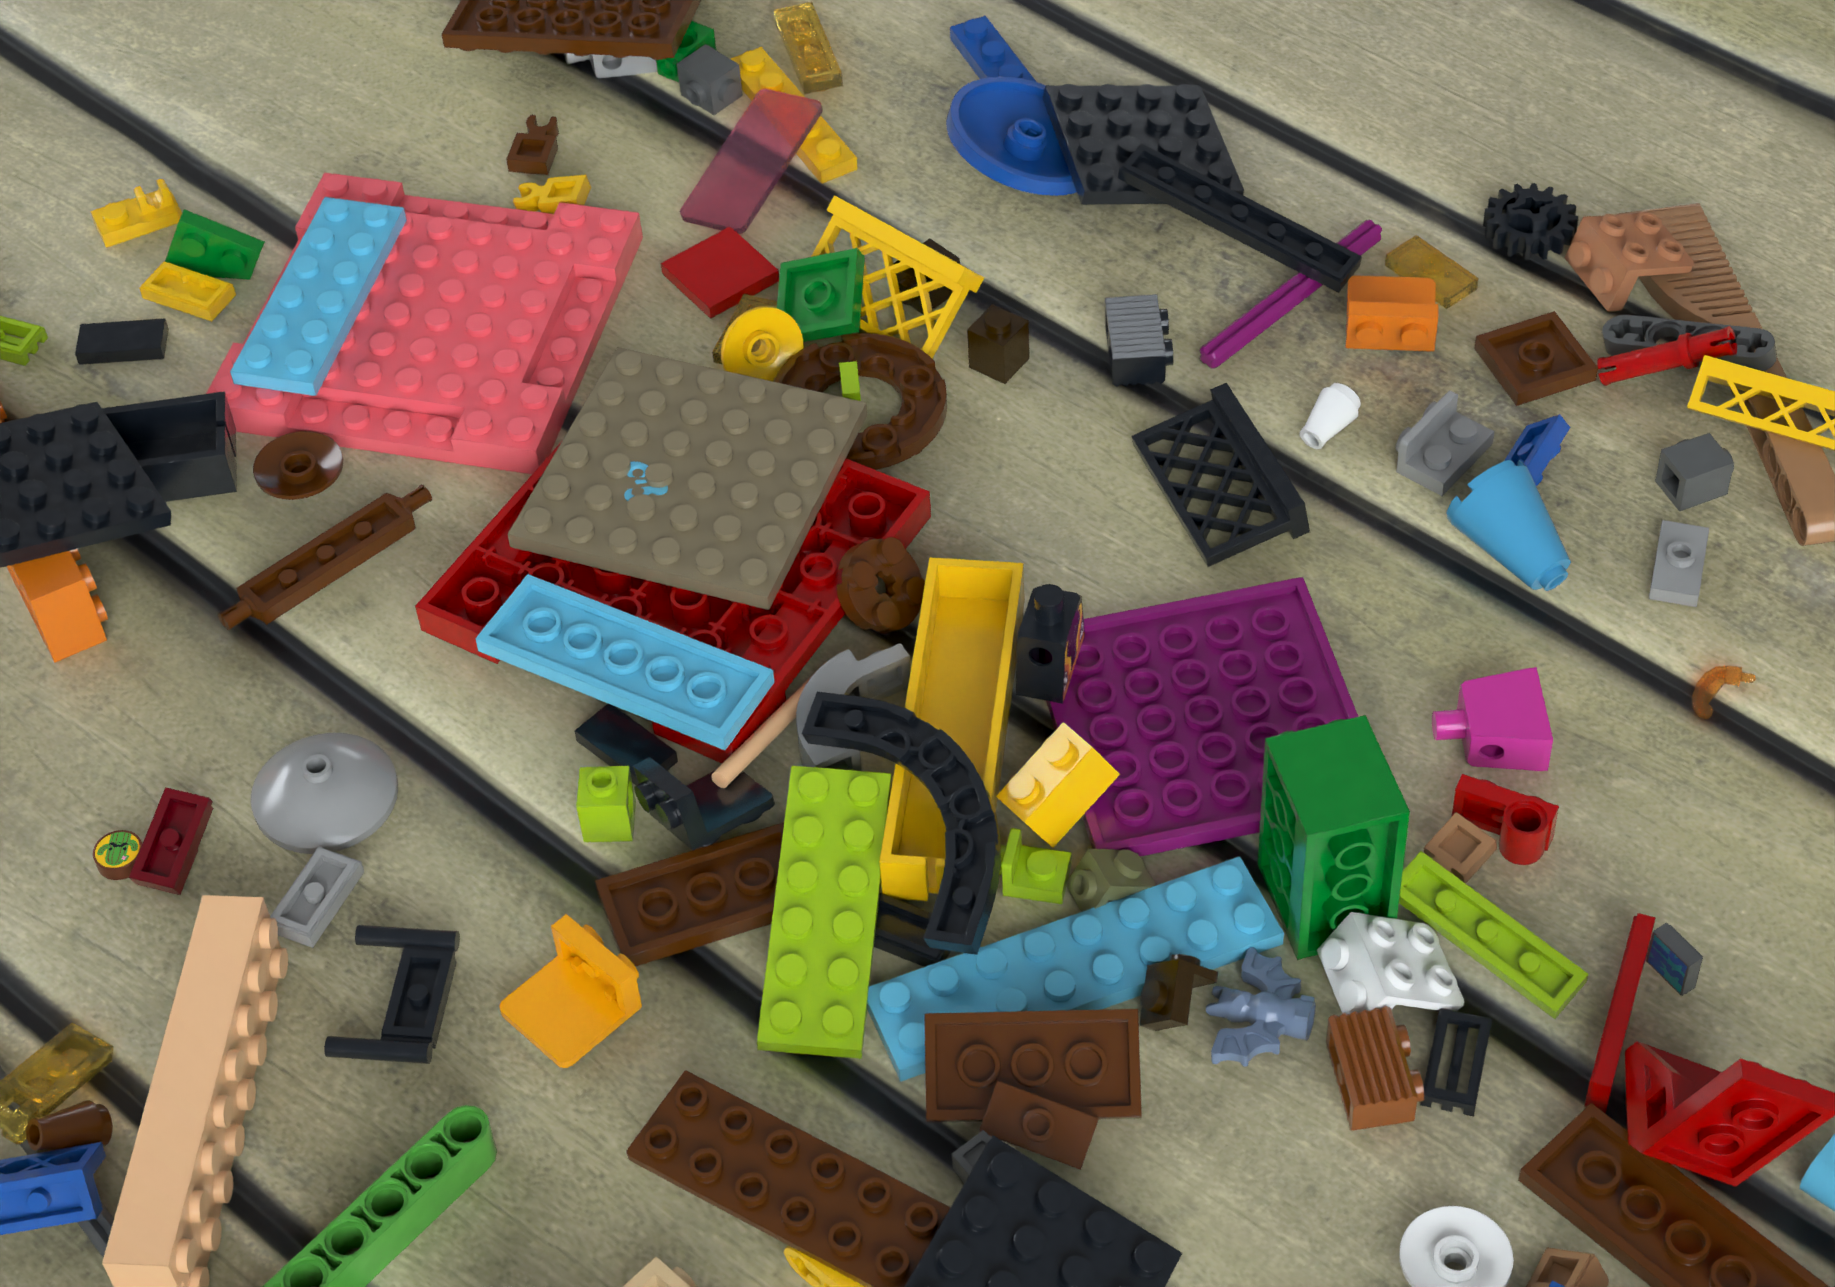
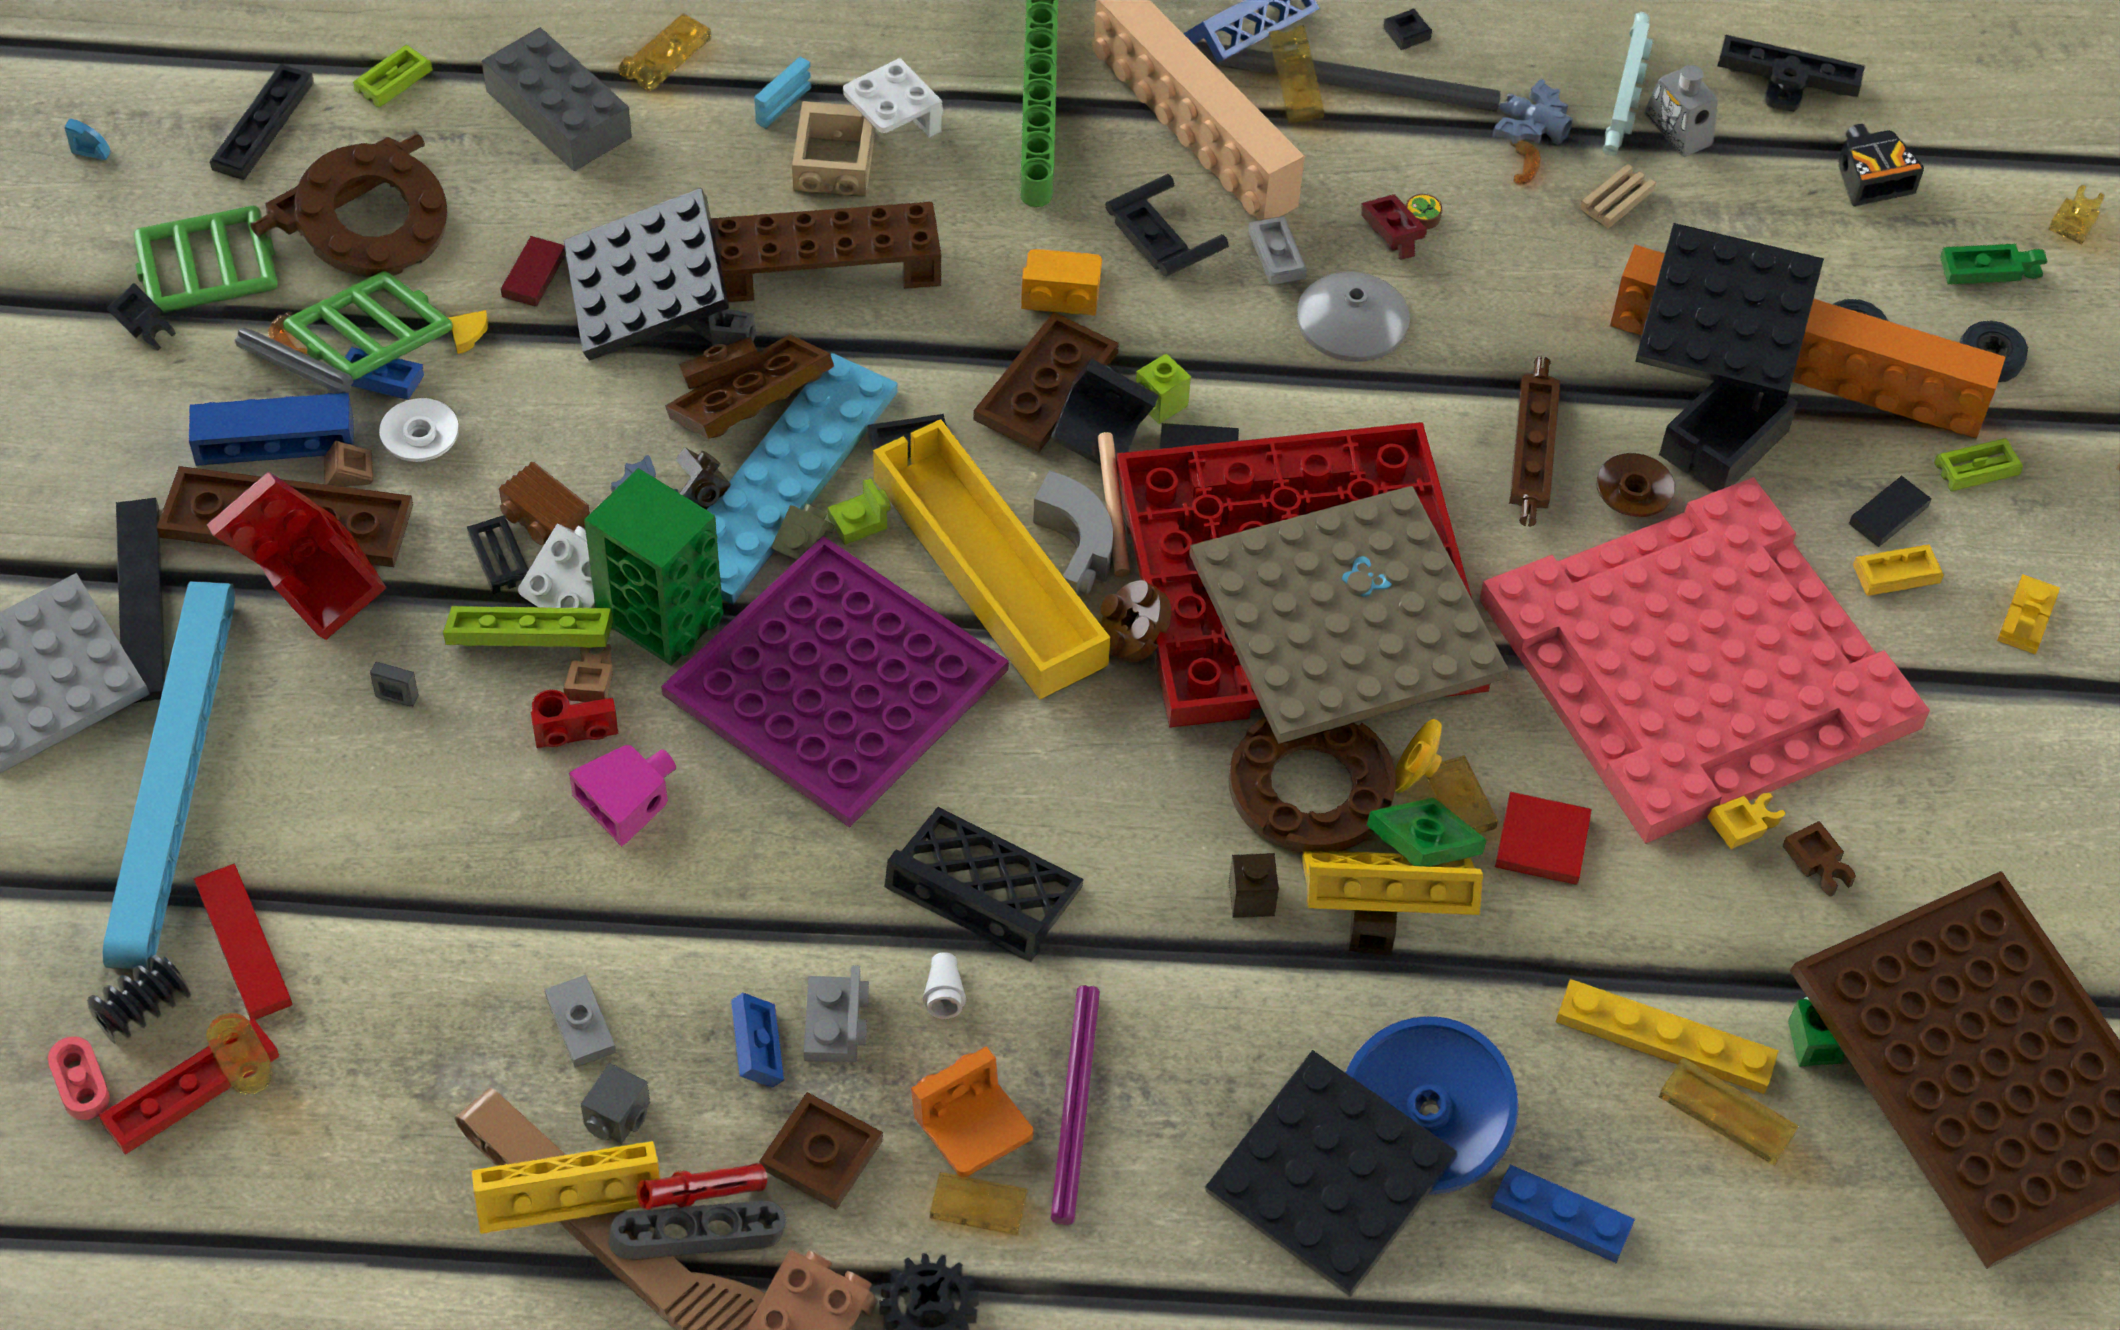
camera: 135 degrees right, 5 degrees up
(70, 1127) = (1253, 64): reddish brown cone -> none
(213, 248) = (1912, 601): green wing -> none
(319, 296) = (1778, 591): medium azure plate -> none
(626, 661) = (1235, 449): medium azure plate -> none
(709, 79) = (1762, 1012): dark grey brick -> none
(751, 161) = (1634, 952): clear pink piece -> none
(824, 913) = (950, 386): lime plate -> none
(850, 380) = (1321, 777): lime tile -> none
(958, 790) = (937, 475): black plate -> none
(1055, 624) = (961, 616): black torso -> none
(1058, 784) = (881, 544): yellow brick -> none
(1136, 339) = (1155, 962): brick -> none
(1240, 217) = (1167, 1114): black tile -> none
(1512, 525) = (723, 948): dark azure cone -> none
(1620, 1012) = (409, 629): red tile -> none
(1712, 682) = (493, 928): clear orange piece -> none

